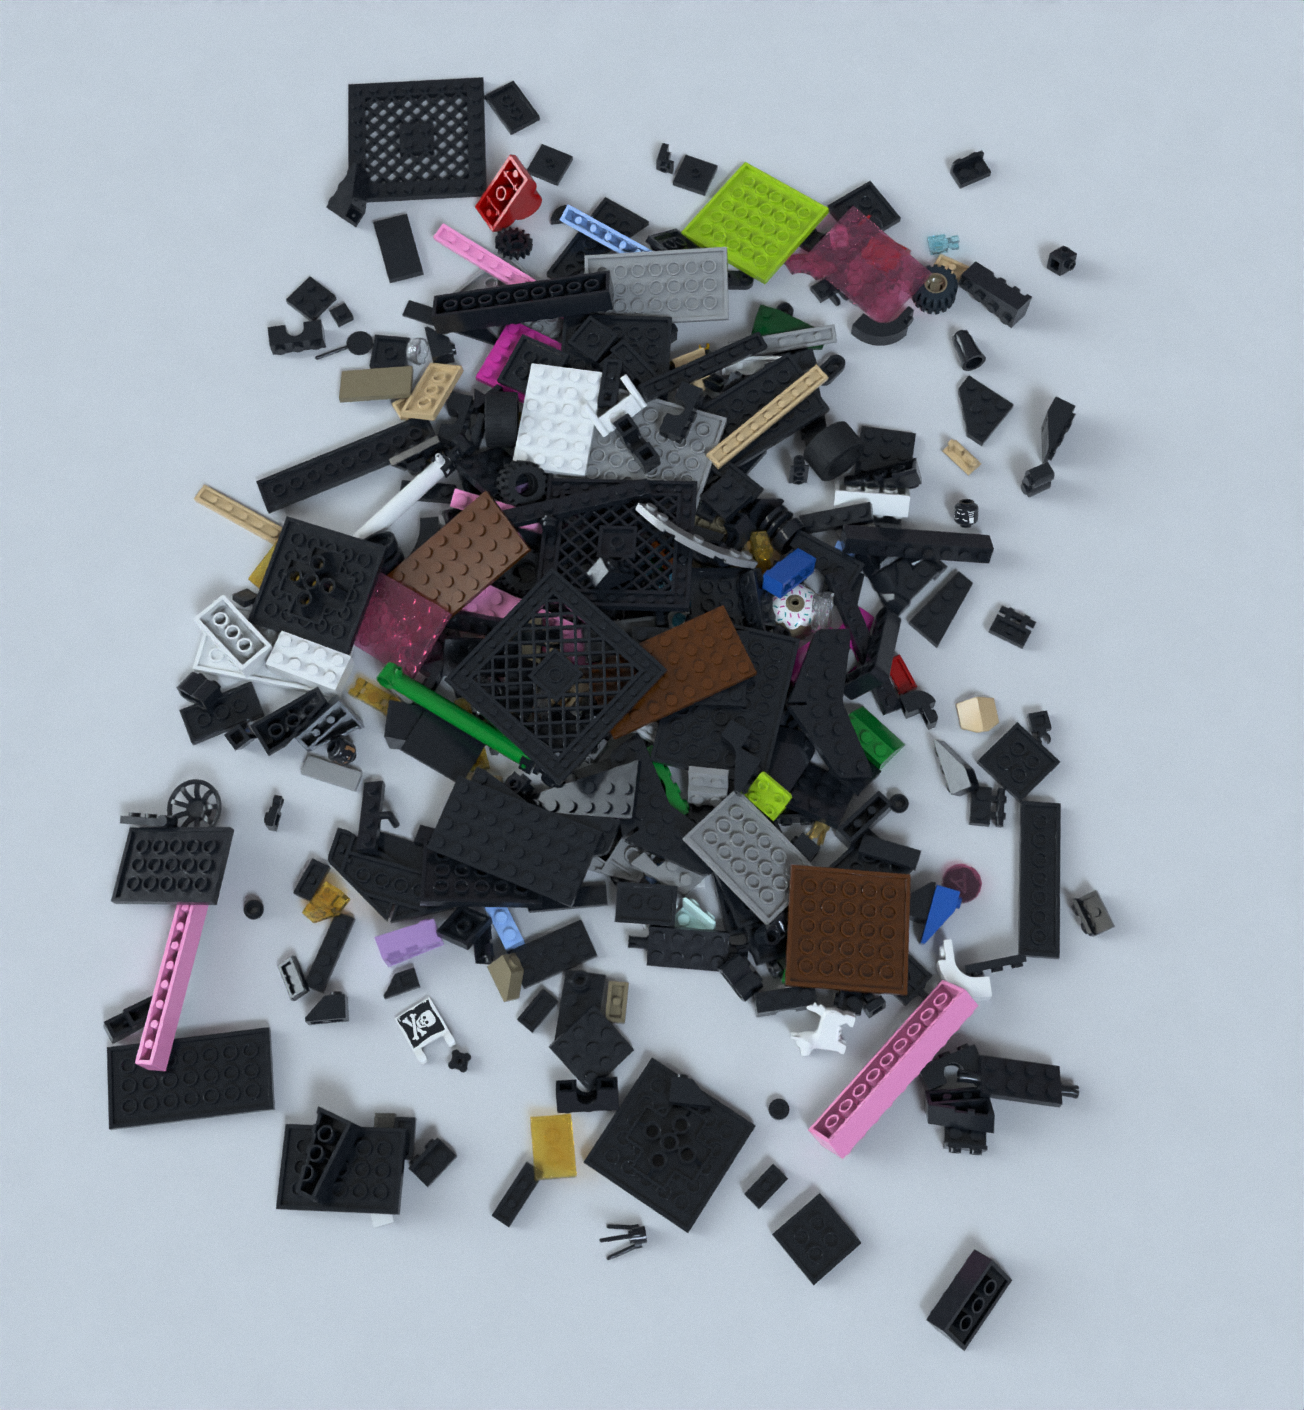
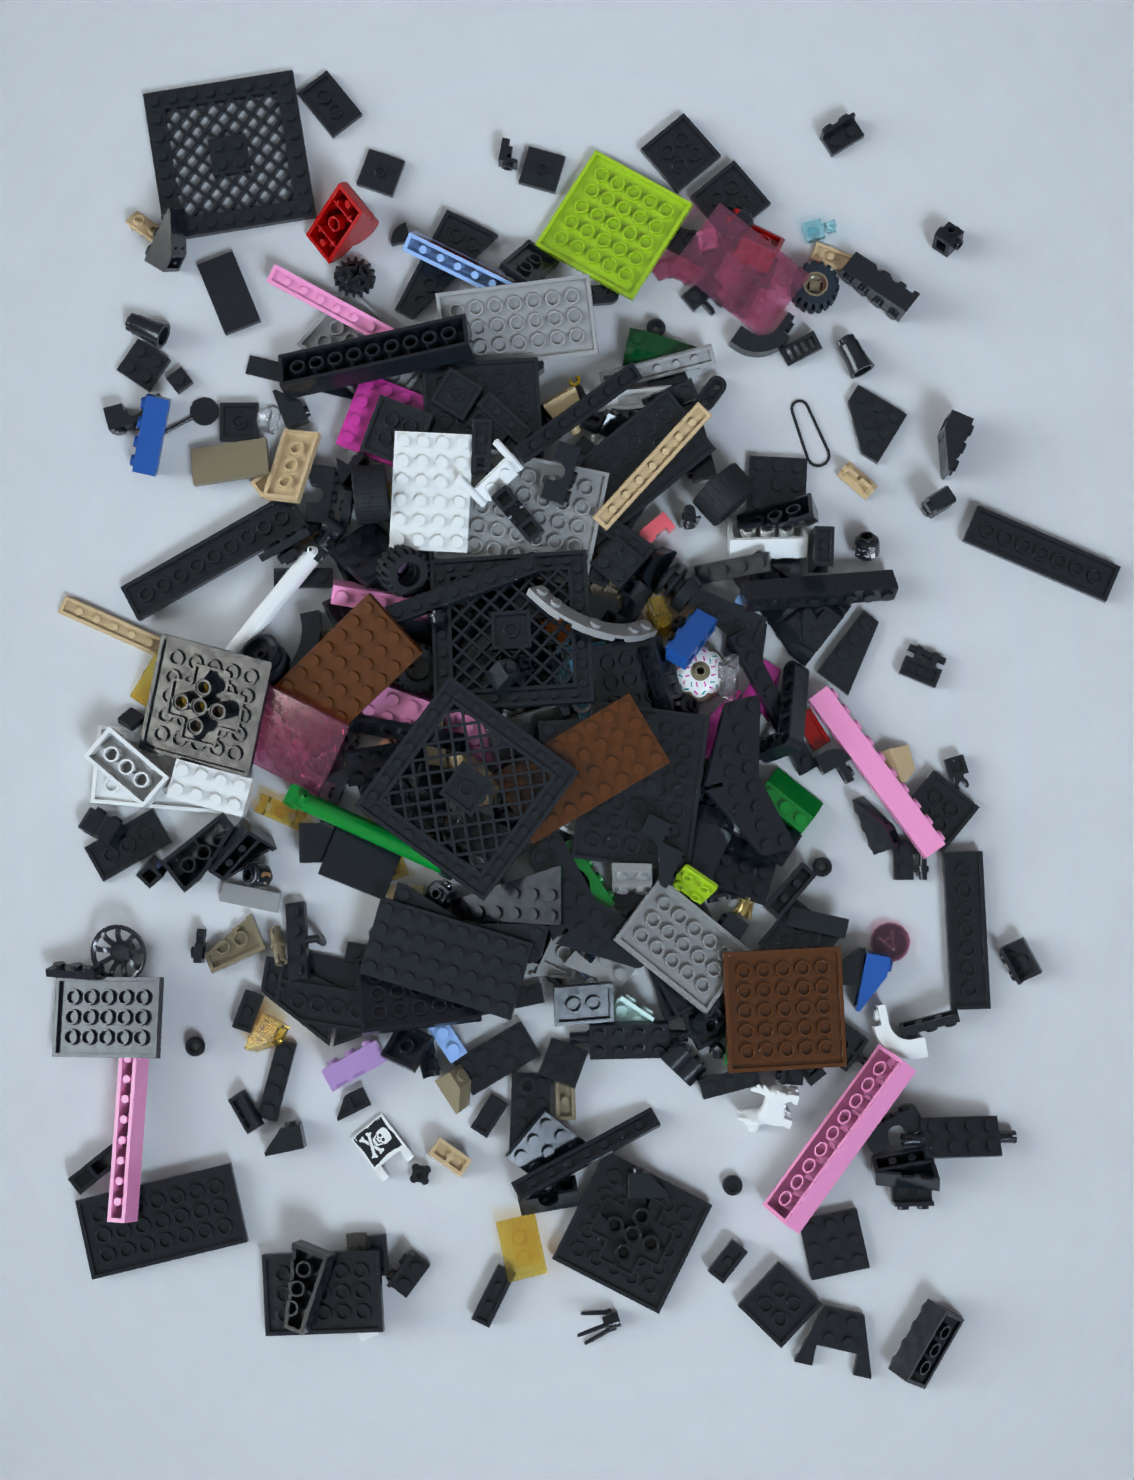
camera: 10 degrees left, 15 degrees up
(307, 352) = (151, 434): none -> blue brick
(314, 816) = (237, 946): none -> dark tan wing
(321, 269) = (148, 329): none -> black plant
(327, 184) = (142, 225): none -> tan hinge
(351, 819) = (278, 946): none -> dark tan pin
(491, 1046) = (449, 1157): none -> tan hinge
(618, 964) = (563, 1063): none -> black plate
(630, 1056) = (585, 1154): none -> black plate
(769, 477) = (657, 527): none -> coral leg
(822, 171) = (680, 153): none -> black plate
(877, 1276) = (840, 1331): none -> black wing
(879, 1182) = (834, 1244): none -> black plate
(922, 505) = (821, 549): none -> black panel
(927, 330) = (811, 351): none -> black slope
(927, 408) = (800, 436): none -> black piece
(960, 718) = (876, 773): none -> bright pink brick
(1135, 537) = (1041, 554): none -> black plate

